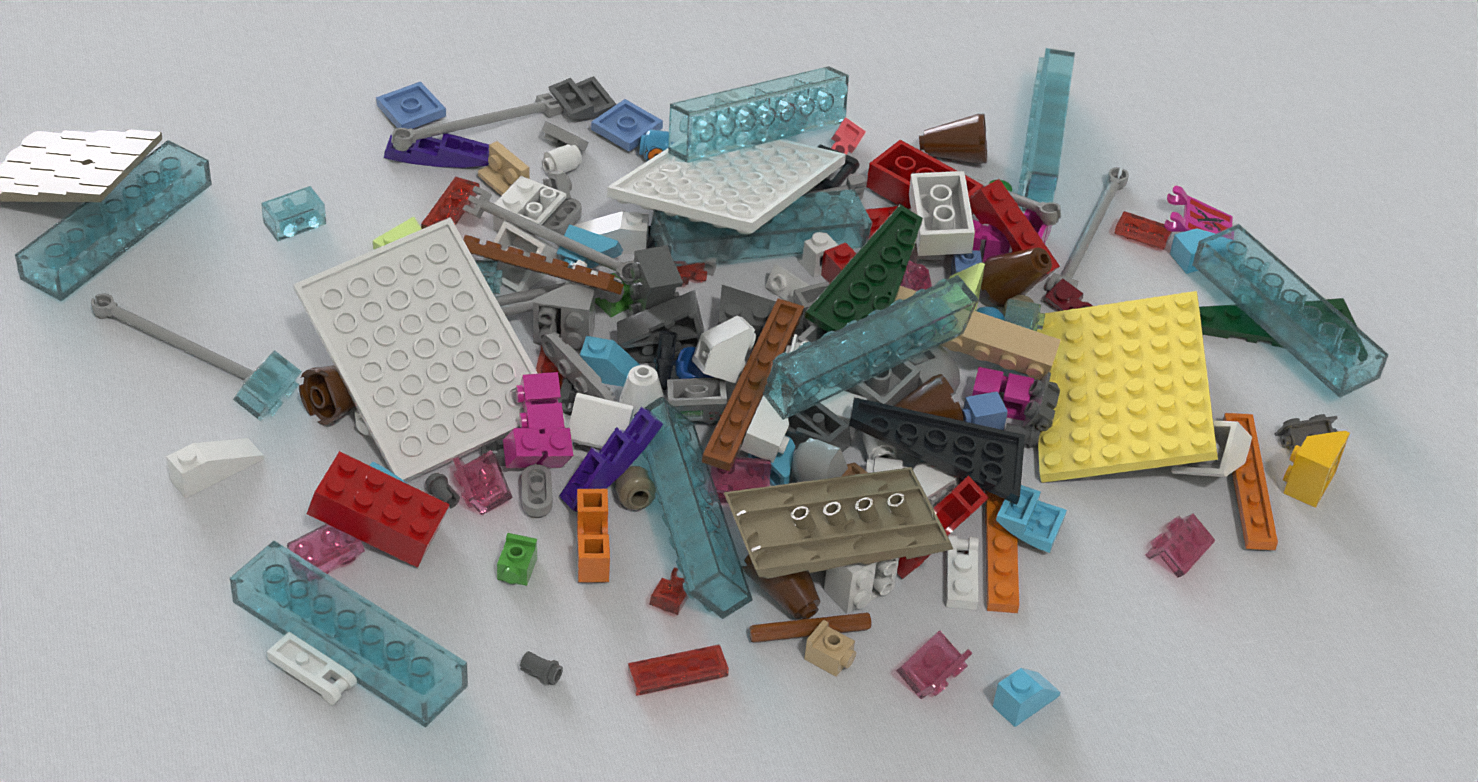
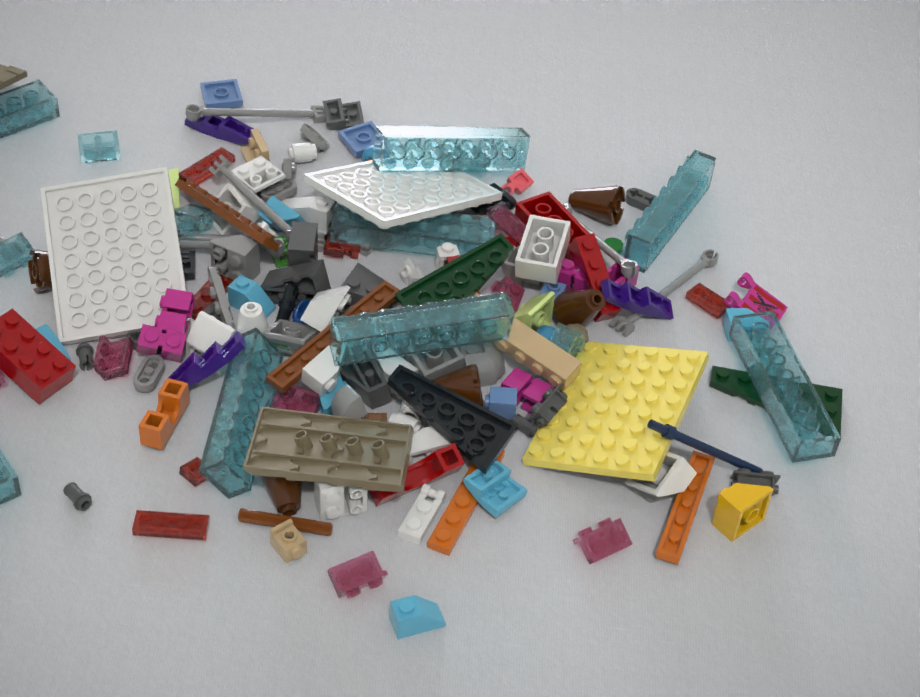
camera: 20 degrees right, 0 degrees up
(517, 559) = (105, 417): bright green brick -> none
(635, 488) = (212, 387): dark tan head -> none
(871, 190) = (507, 222): none -> clear pink bracket
(1004, 125) = (638, 198): none -> dark grey beam
(1065, 297) = (617, 333): dark red plate -> none
(1074, 250) = (640, 301): none -> dark purple slope
(1214, 397) = (670, 433): none -> dark blue bar

